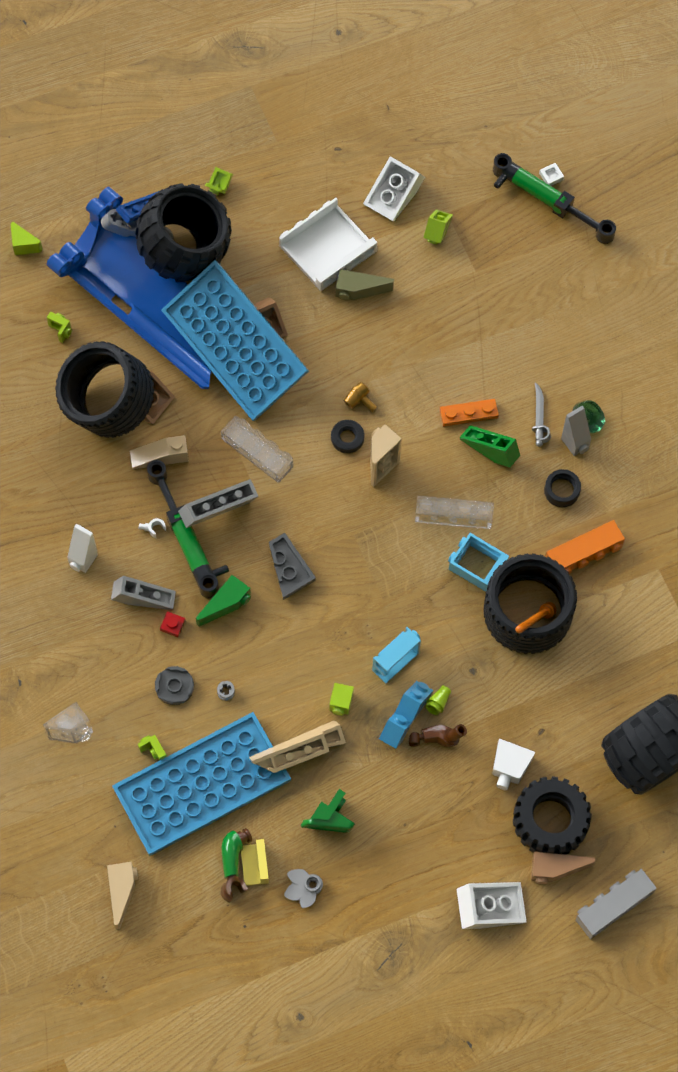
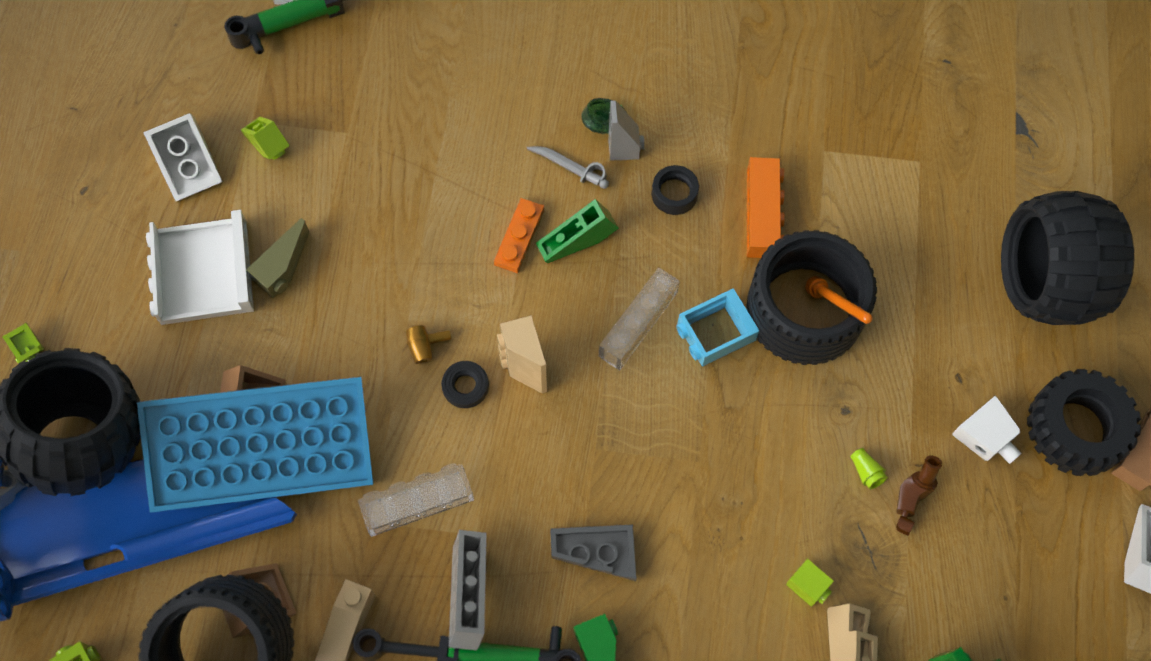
camera: 60 degrees left, 0 degrees up
(396, 655) = (792, 482): medium azure window -> none
(406, 712) = (867, 509): dark azure arch -> none

